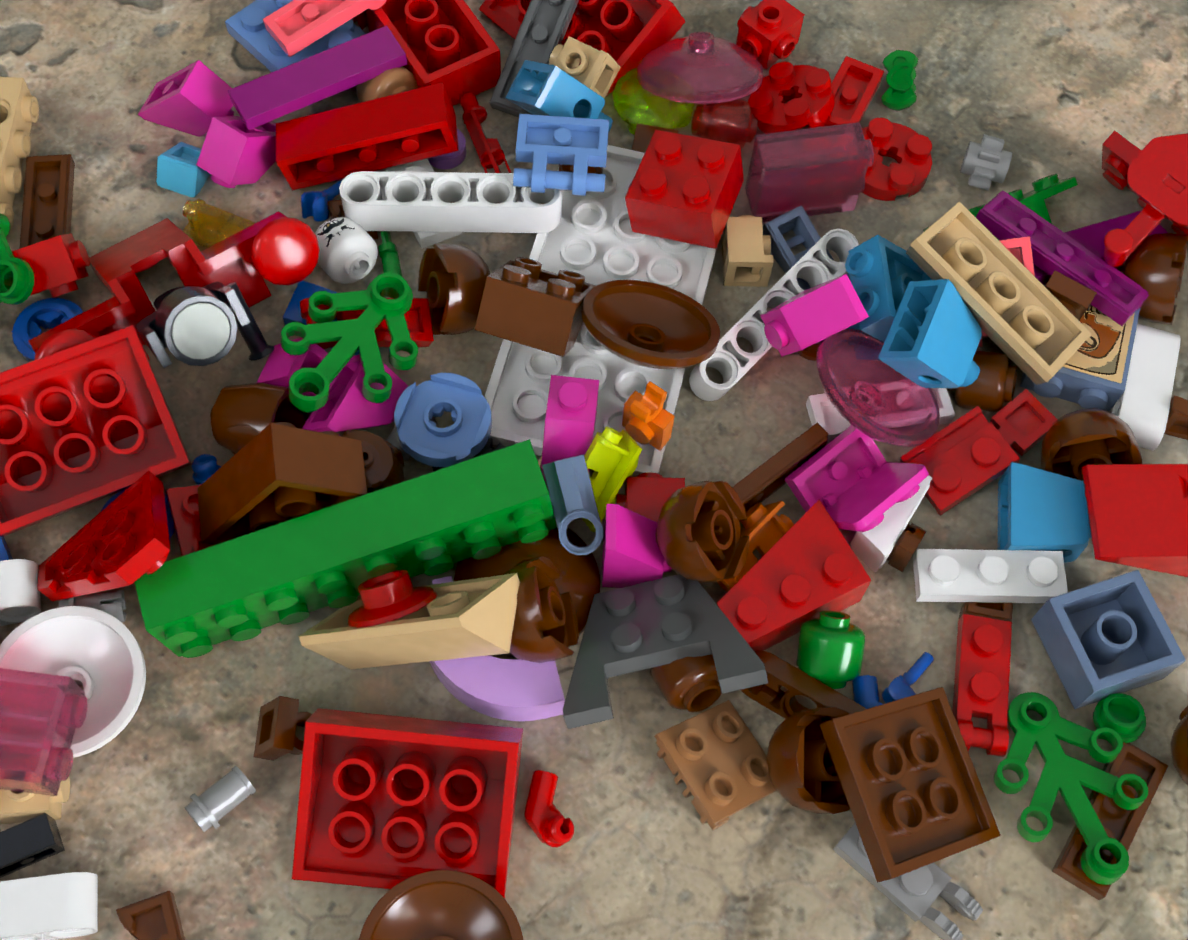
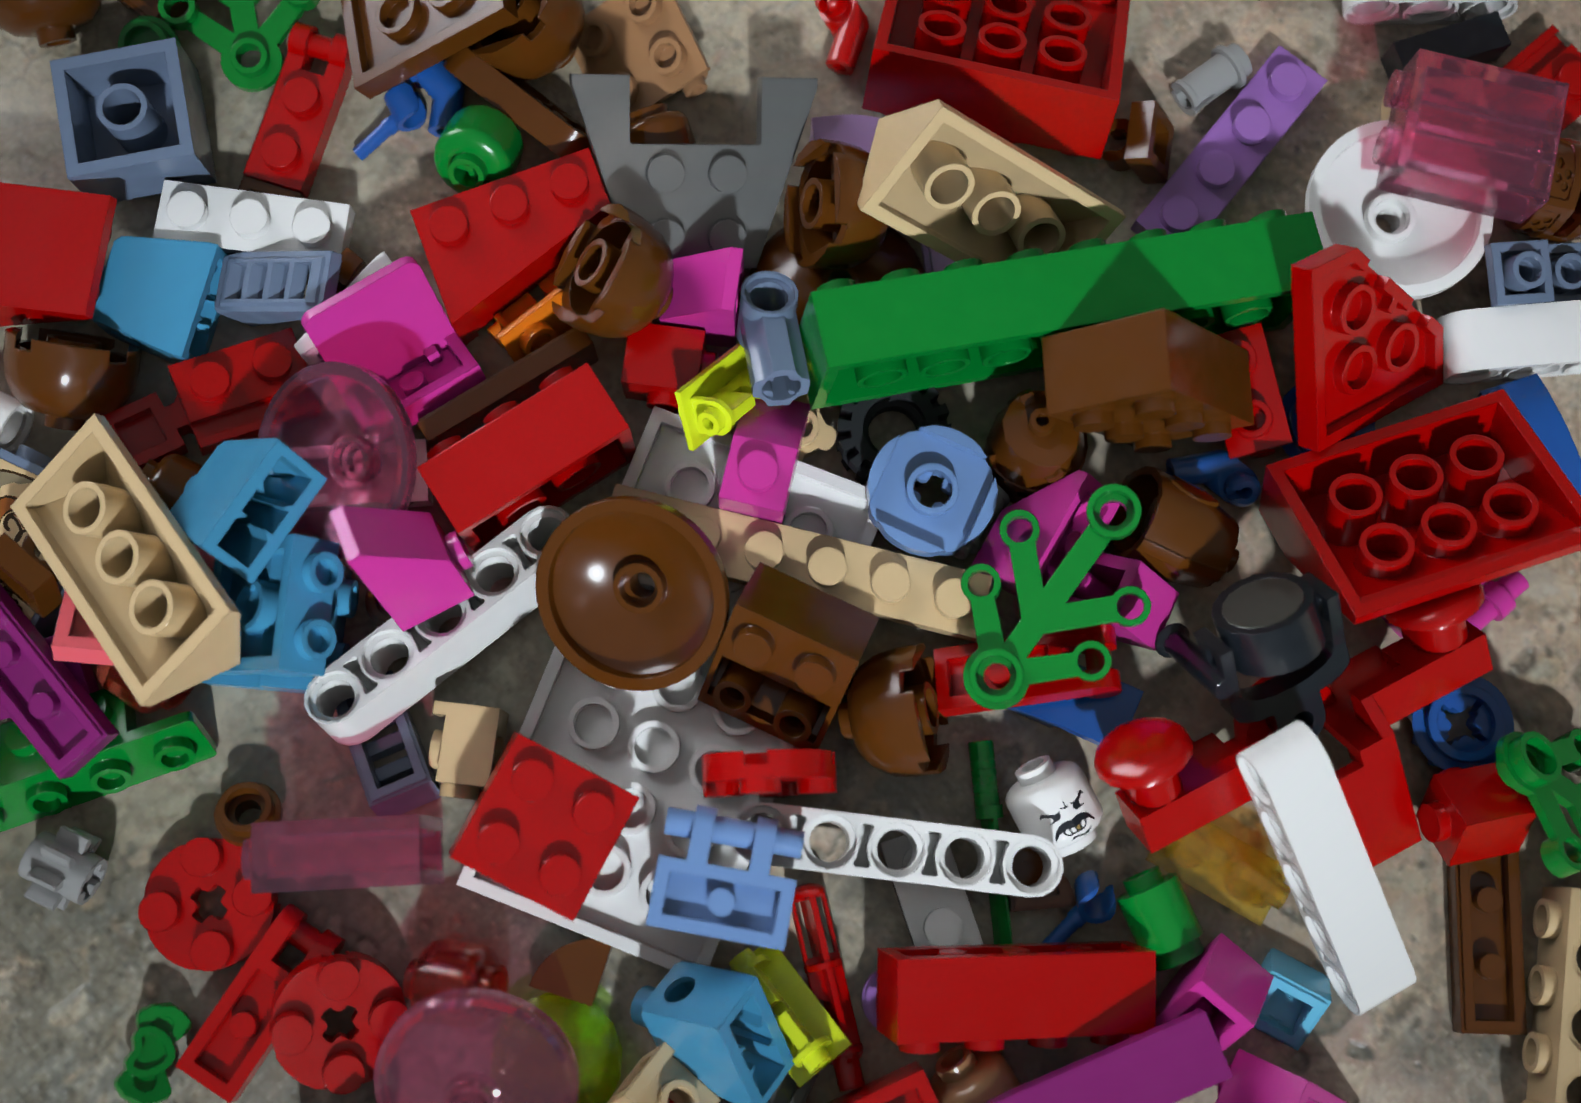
camera: 175 degrees left, 15 degrees up
(161, 207) = (1326, 866): none -> white beam
(204, 740) = (1234, 145): none -> medium lavender plate
(269, 192) = (1161, 917): none -> green brick
(389, 599) = (1012, 214): red piece -> none
(500, 117) = (804, 1021): none -> neon yellow hinge
(529, 370) = (868, 577): none -> tan plate
(540, 223) = (769, 773): none -> red plate
(646, 418) = (660, 456): orange plate -> none
(741, 414) = (529, 455): none -> red brick
(888, 197) = (239, 799): none -> reddish brown plate
(957, 522) = (271, 285): none -> sand blue slope

